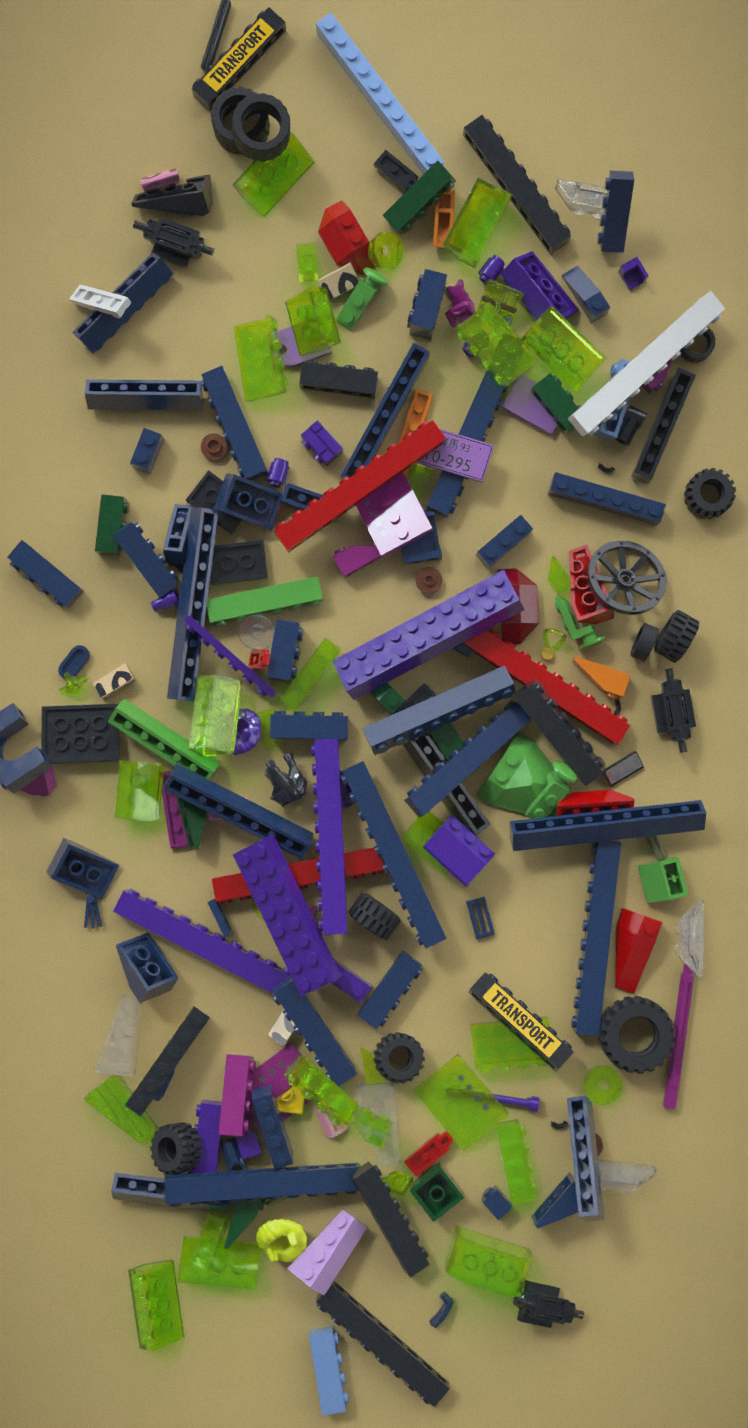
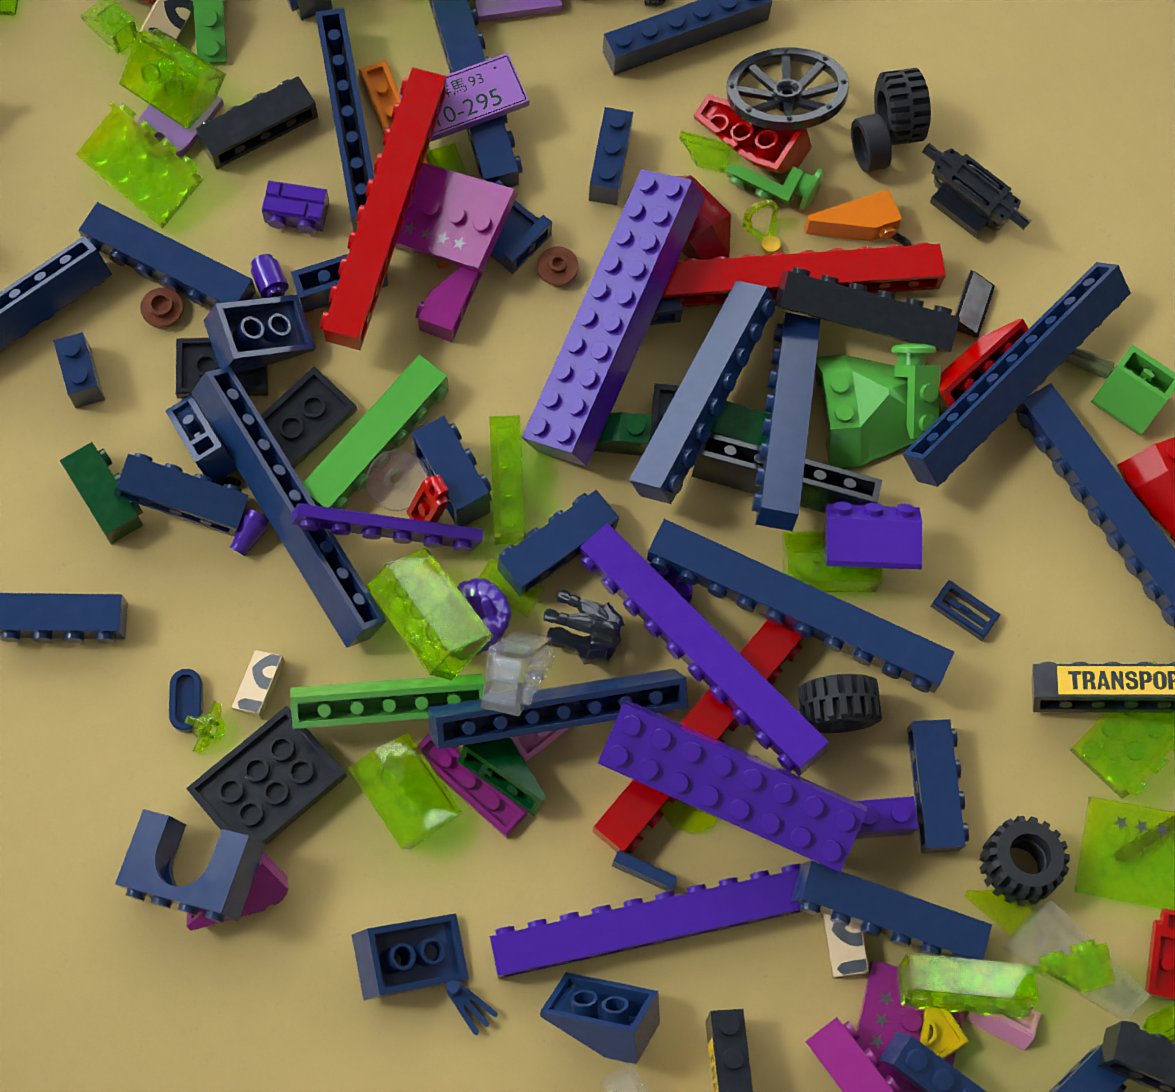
camera: 45 degrees left, 15 degrees down
(230, 780) = (516, 671): none -> clear wedge

